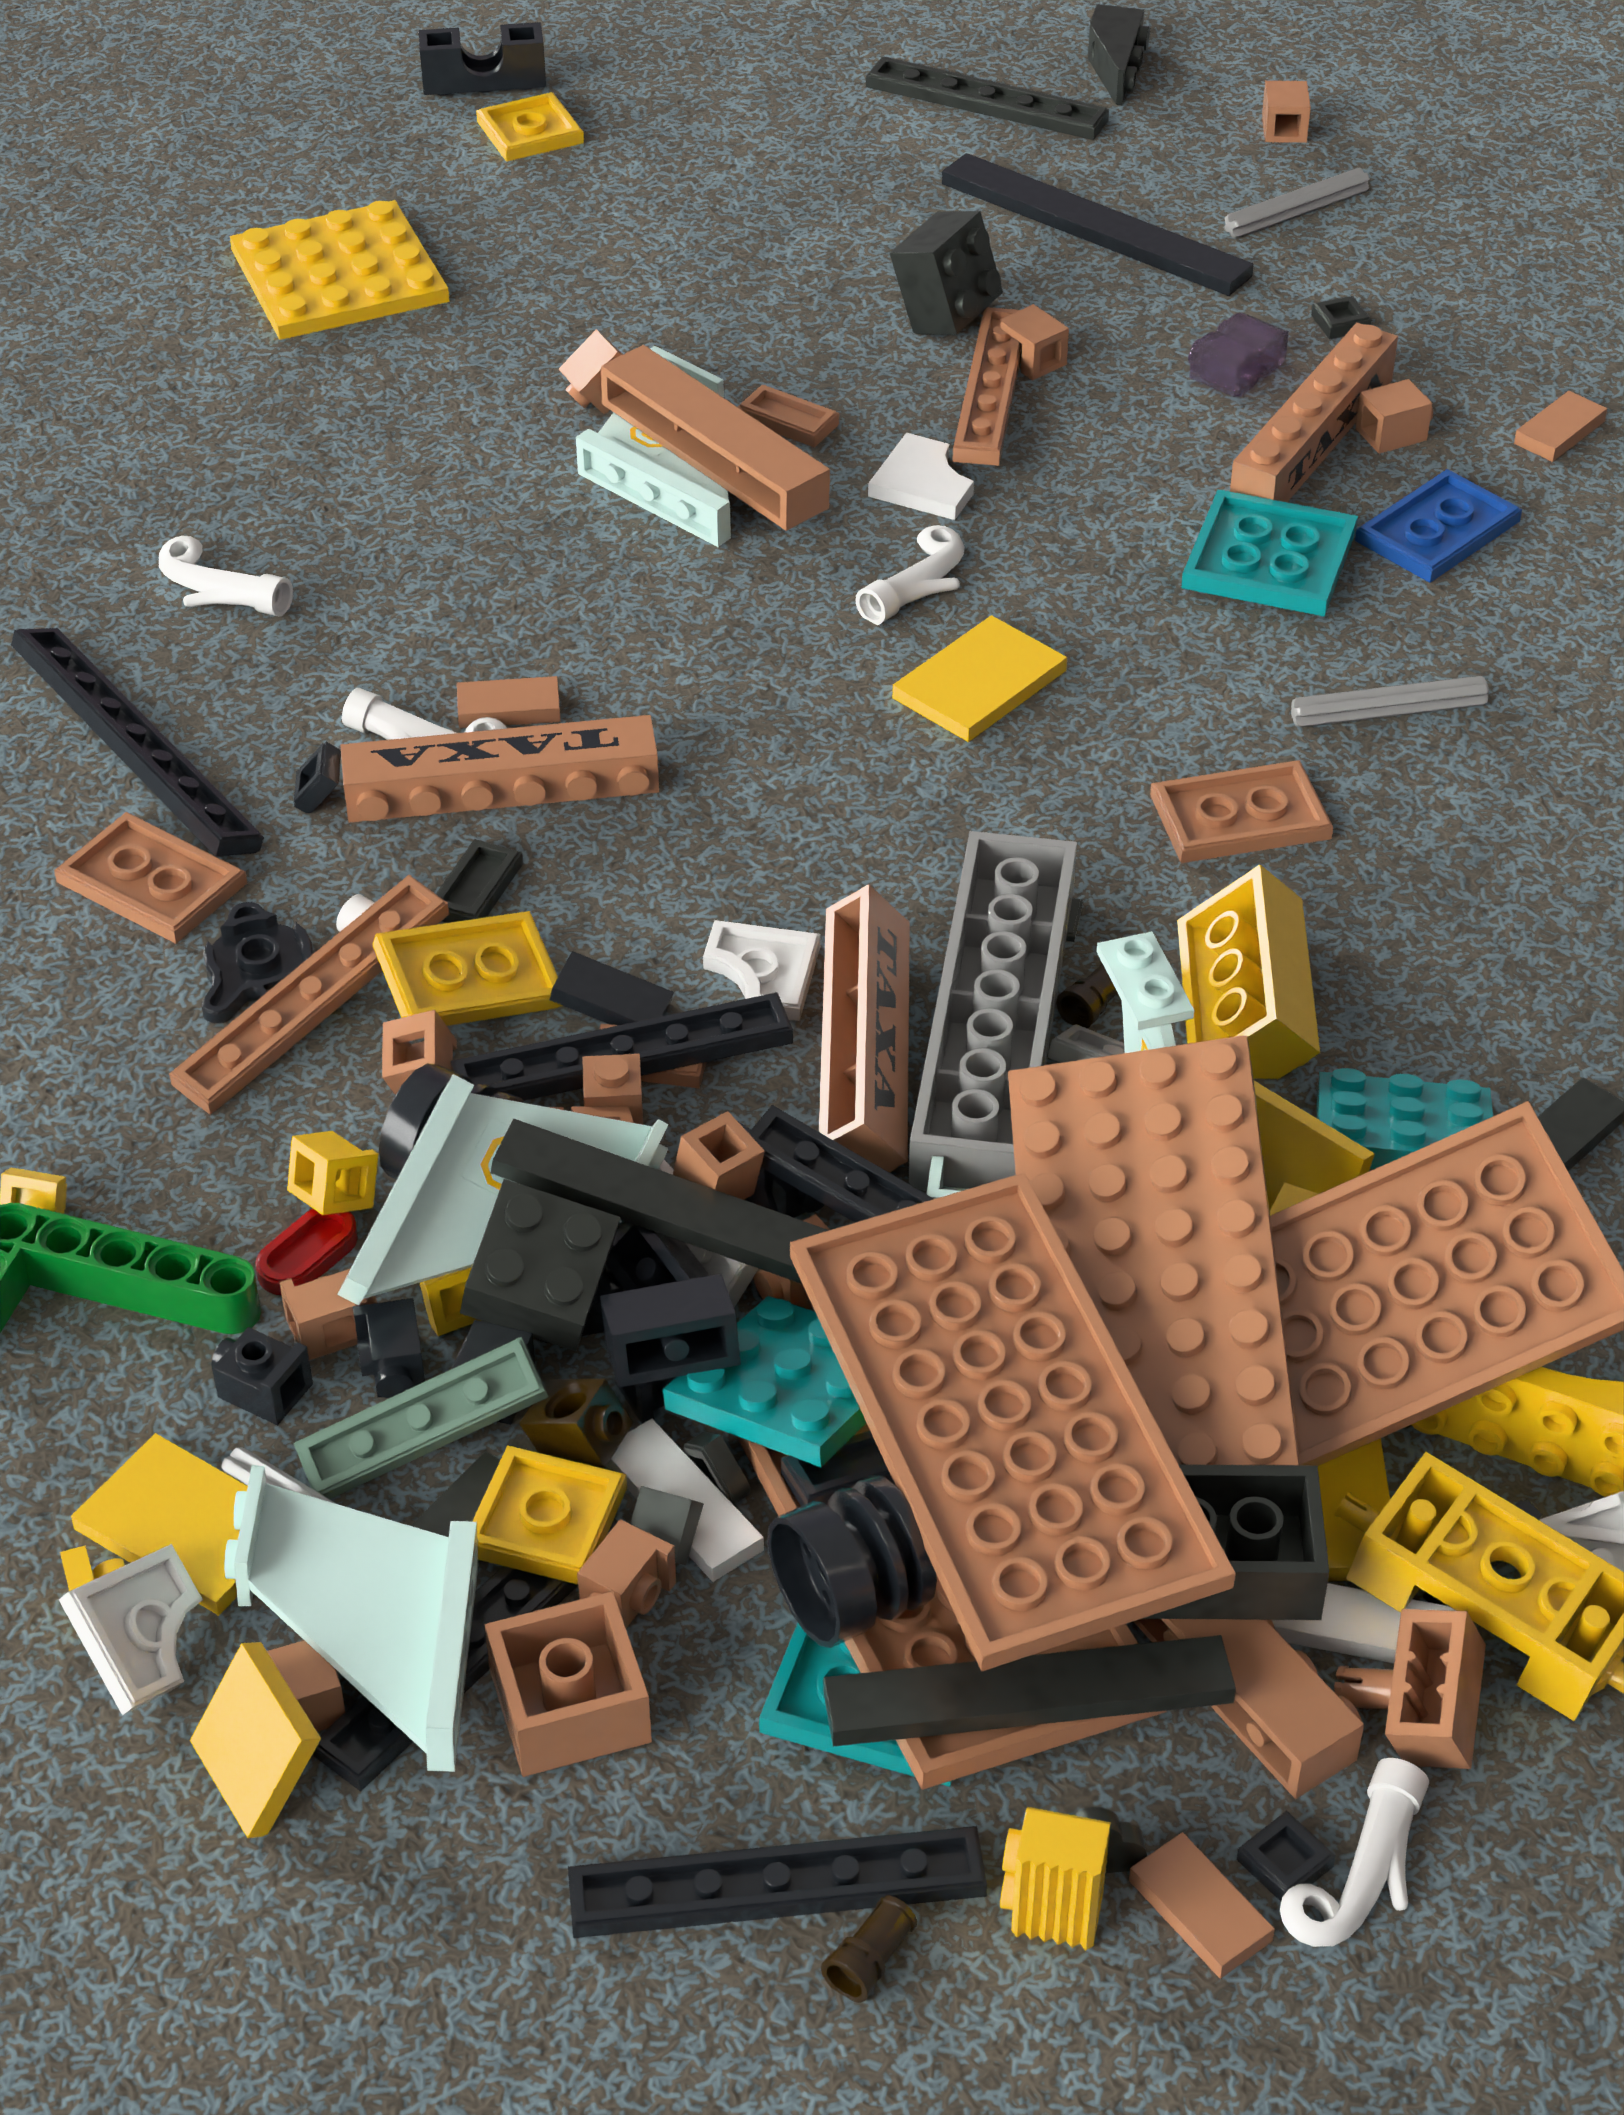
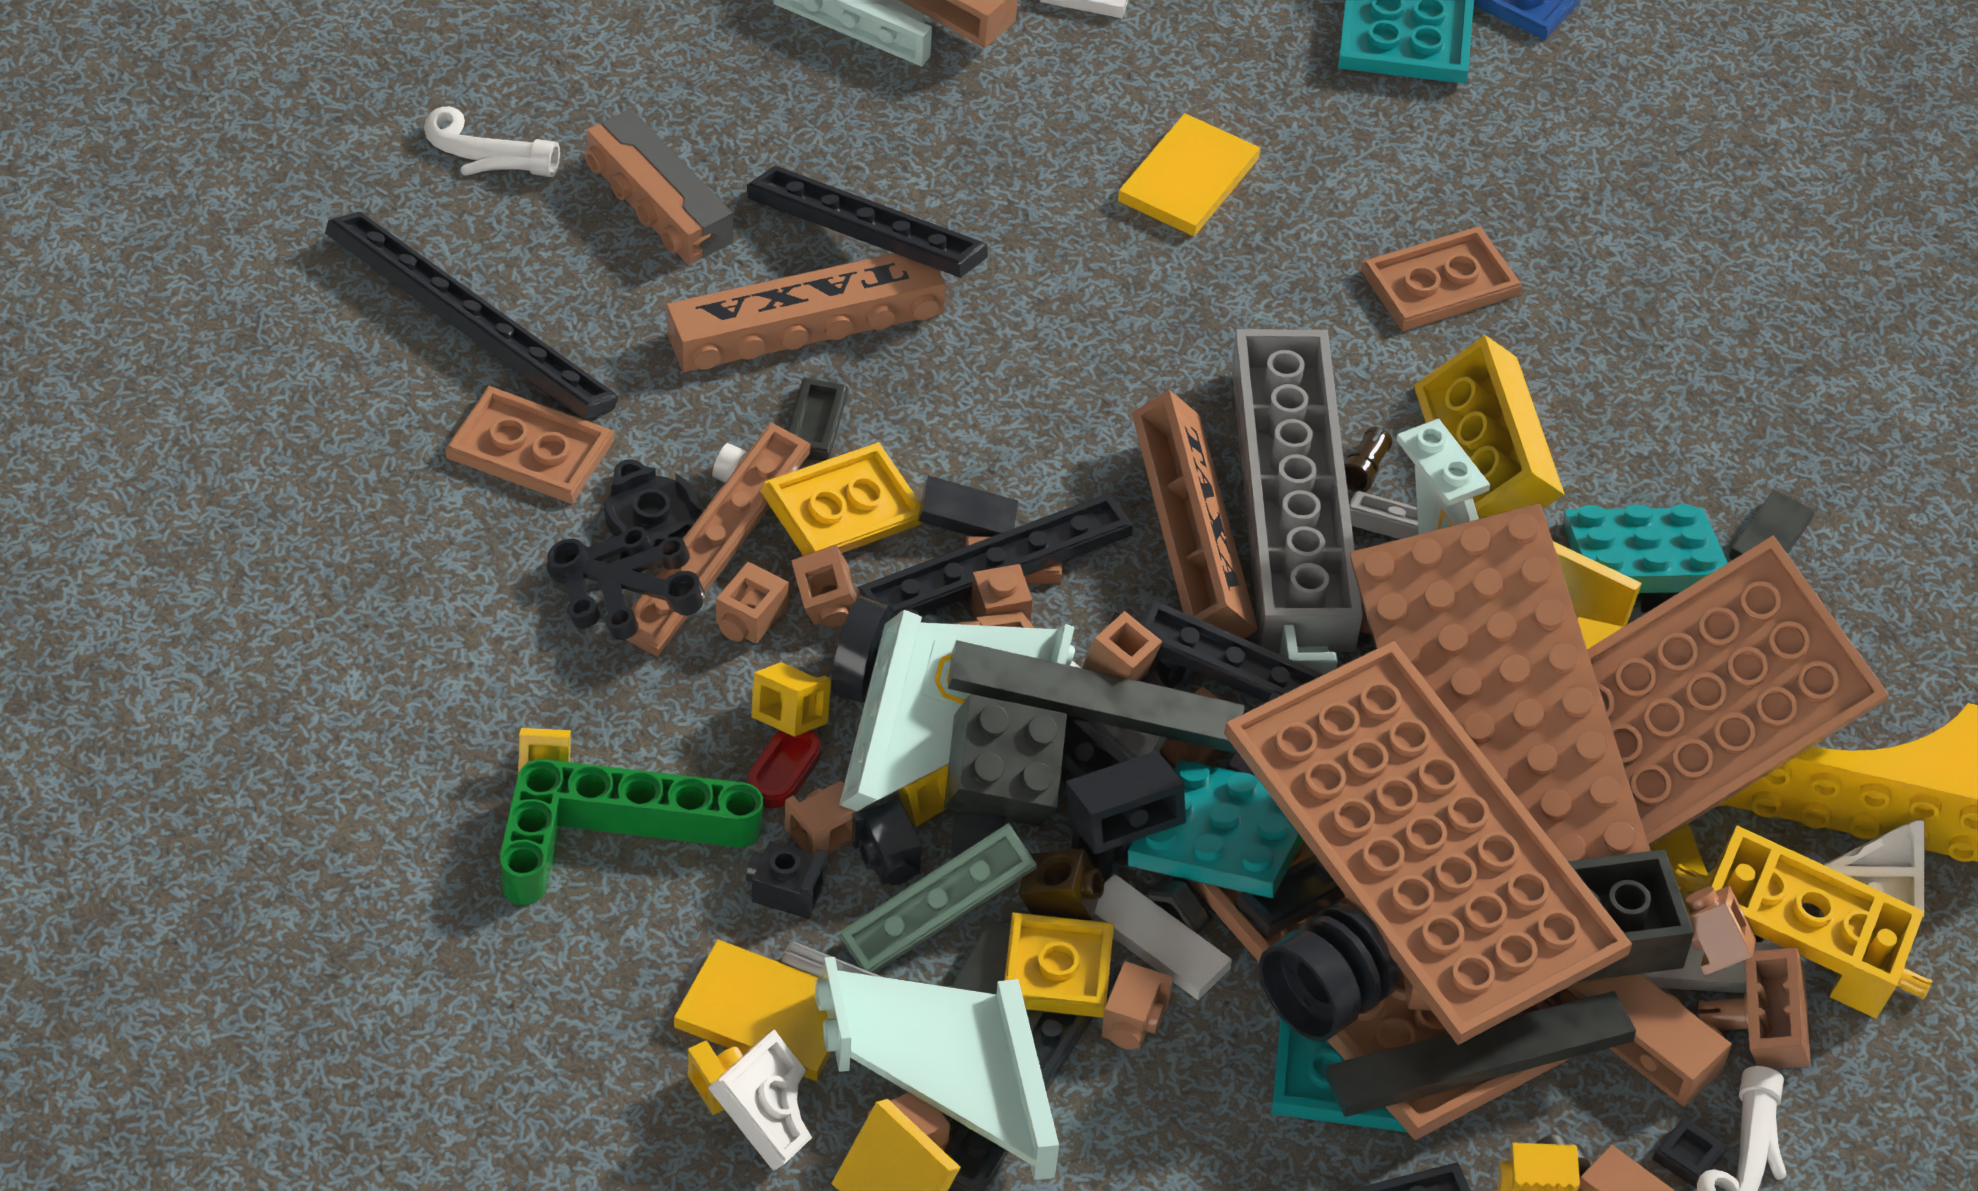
camera: 15 degrees left, 5 degrees up
(148, 1000) = (573, 562): none -> black plant
(317, 777) = (649, 335): black tile -> none
(326, 1066) = (746, 612): none -> nougat brick
(368, 712) = (704, 278): white plant -> none
(383, 633) = (659, 187): none -> piece
(509, 701) = (785, 243): nougat tile -> none
(568, 1683) = (1122, 1097): nougat brick -> none
(596, 685) = (868, 221): none -> black tile
(668, 1518) = (1156, 953): pearl dark grey tile -> none
(764, 961) = (1082, 462): white tile -> none
(884, 598) = (1088, 104): white plant -> none
(1371, 1574) = (1719, 928): none -> nougat brick
(1389, 701) = (1540, 161): light grey axle -> none

